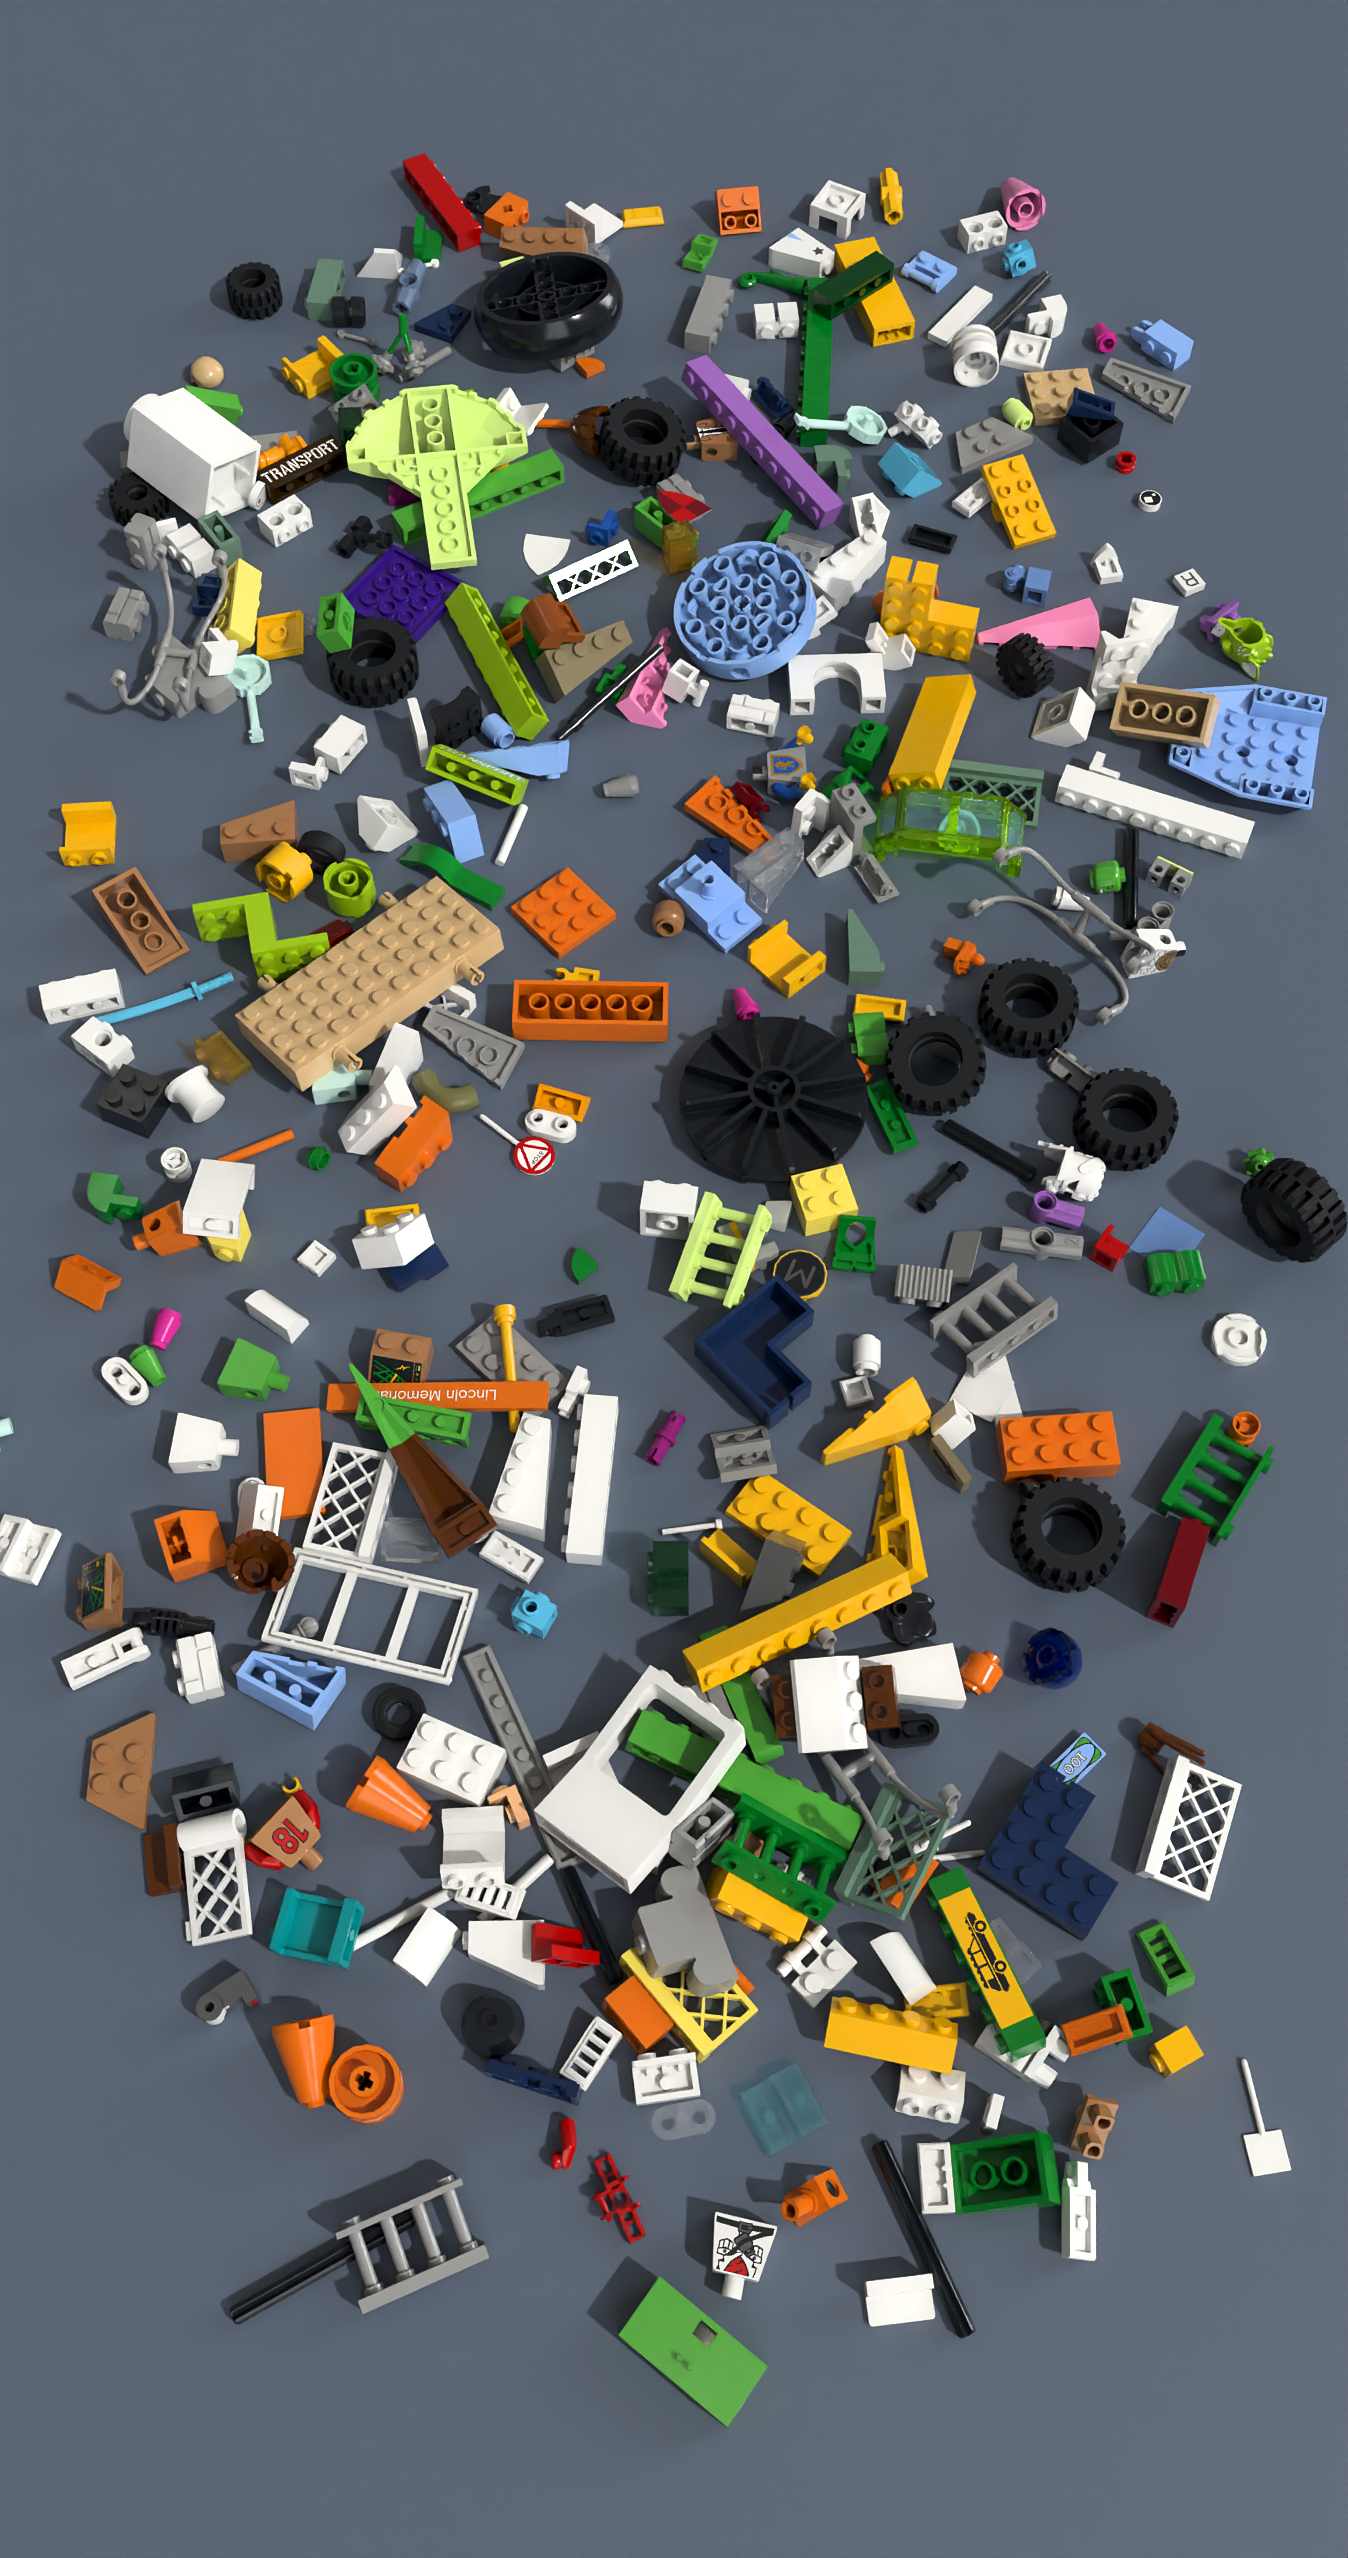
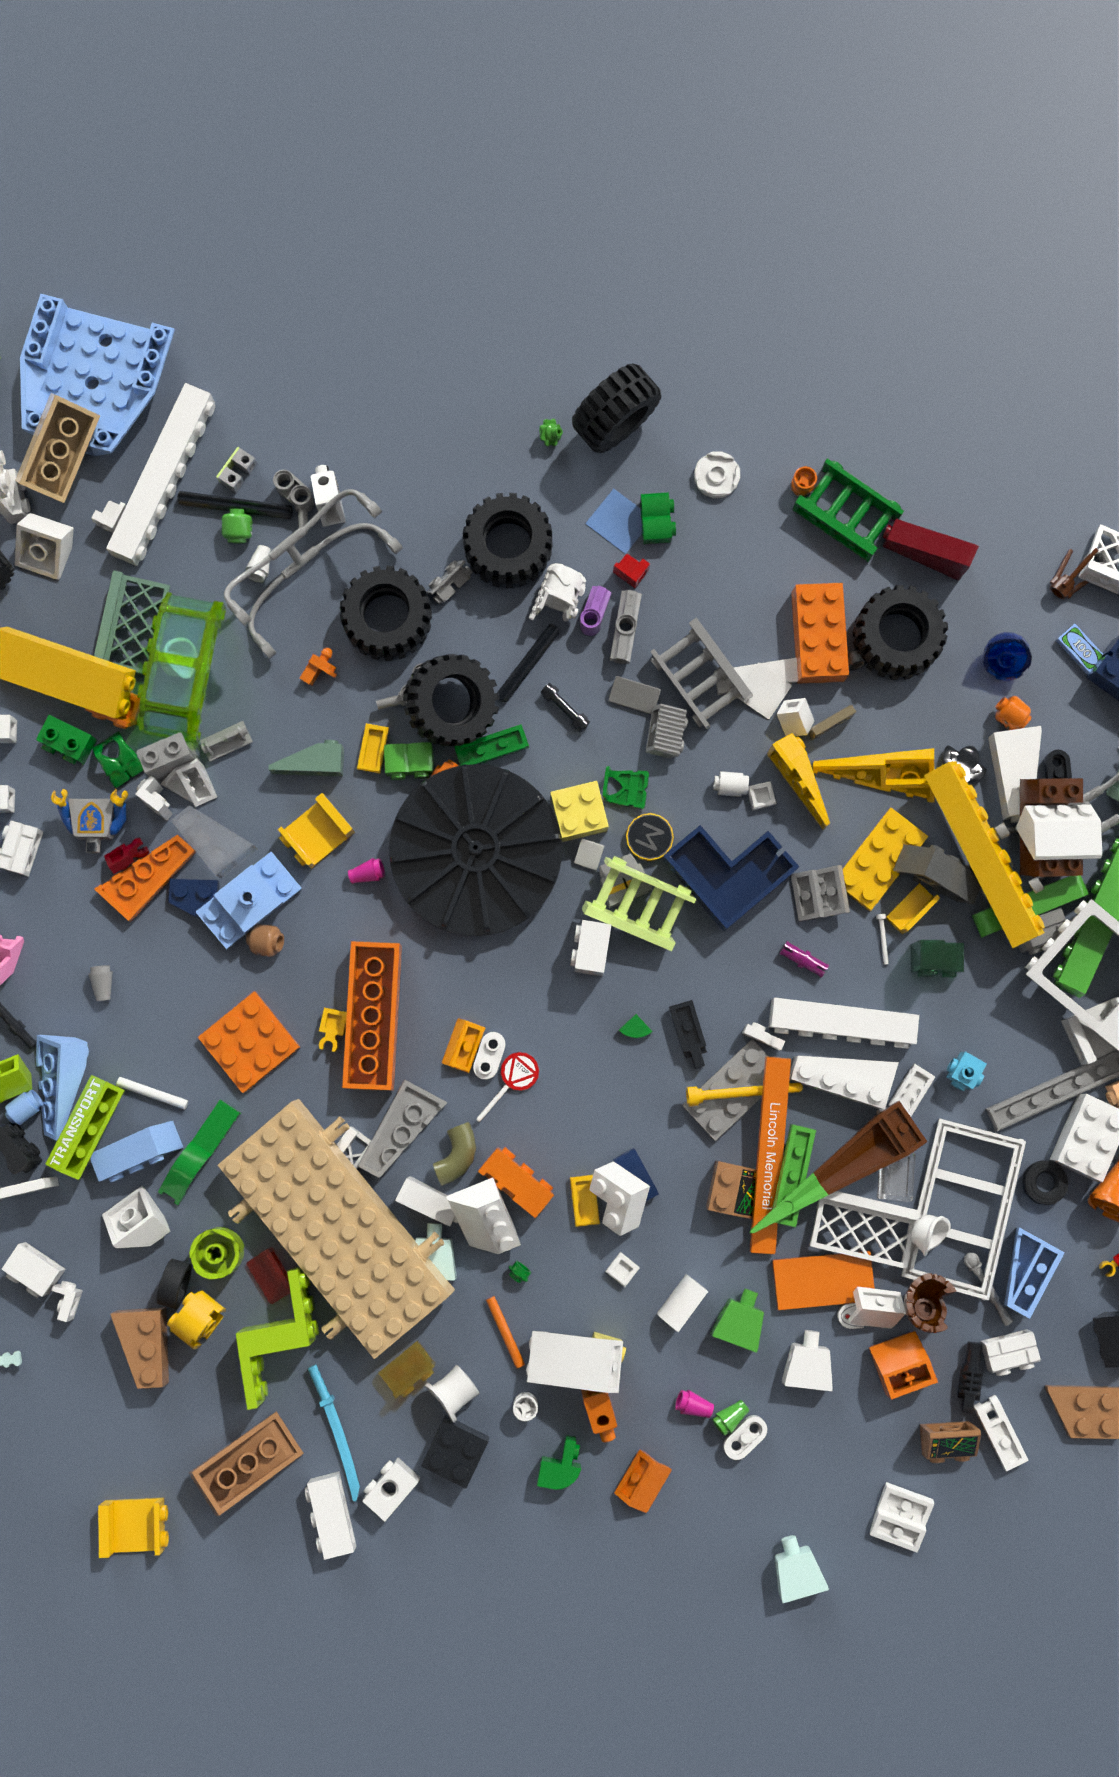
camera: 90 degrees left, 20 degrees up
(341, 1567) = (930, 1232): none -> white helmet

